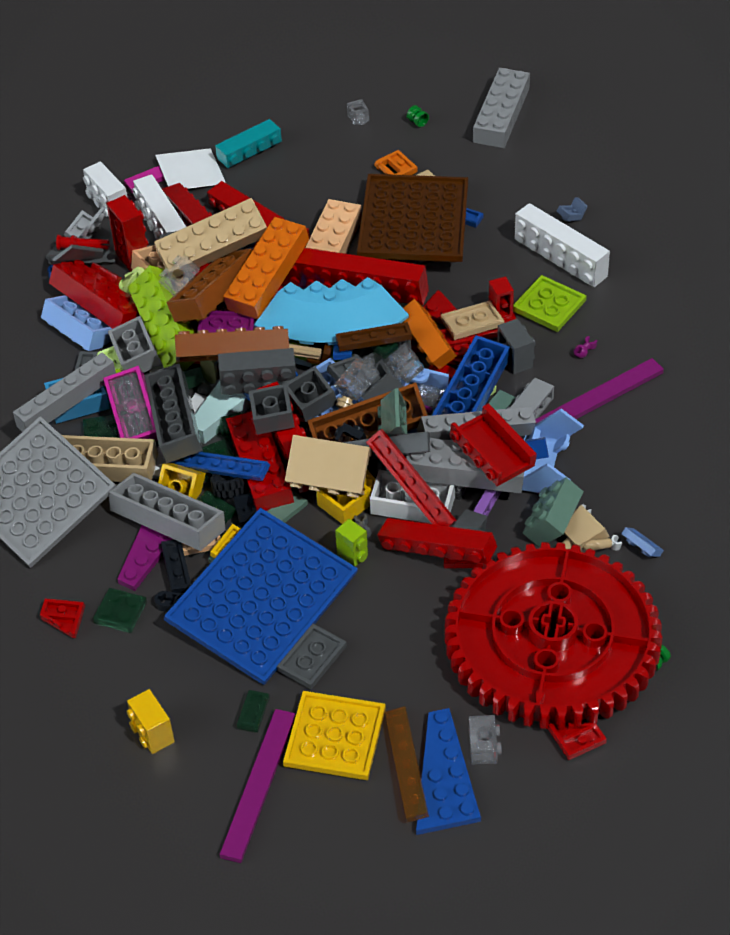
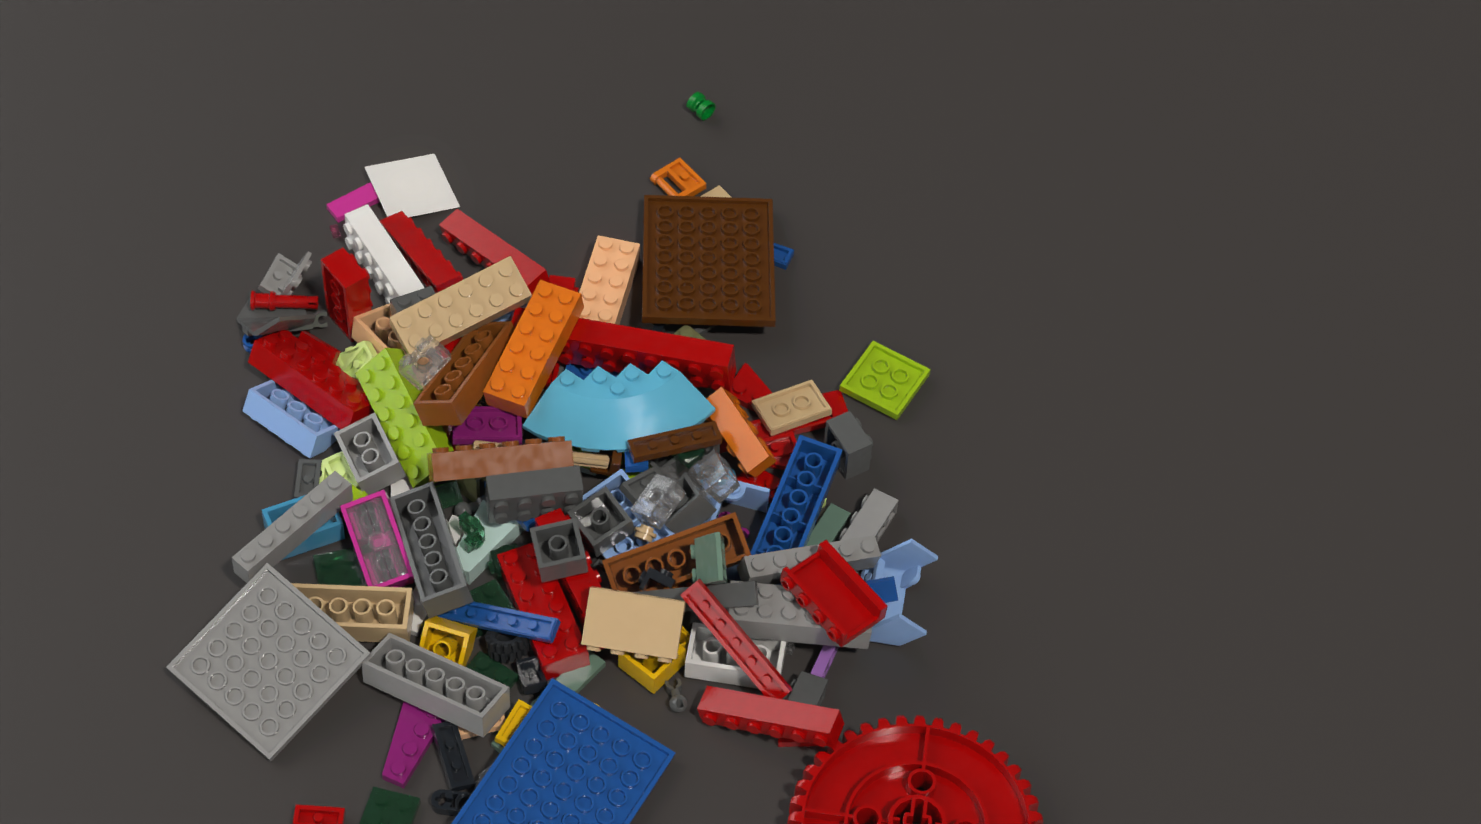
camera: 10 degrees left, 5 degrees up
(102, 185) = (307, 224): white brick -> none
(208, 401) = (473, 530): none -> clear green bracket
(248, 143) = (485, 149): teal brick -> none
(351, 542) = (667, 720): lime brick -> none
(360, 116) = (624, 105): clear brick -> none
(431, 395) = (748, 514): clear brick -> none
(501, 107) = (808, 93): light grey brick -> none
(502, 296) = (826, 374): red brick -> none
(552, 511) = (907, 673): sand green brick -> none
(561, 245) = (896, 299): white brick -> none
(574, 211) = (907, 247): sand blue bracket -> none
(582, 350) = (928, 446): magenta arm -> none
(588, 532) = (947, 697): tan torso -> none
(609, 390) = (959, 504): magenta tile -> none
(637, 539) = (1007, 703): medium blue plate -> none

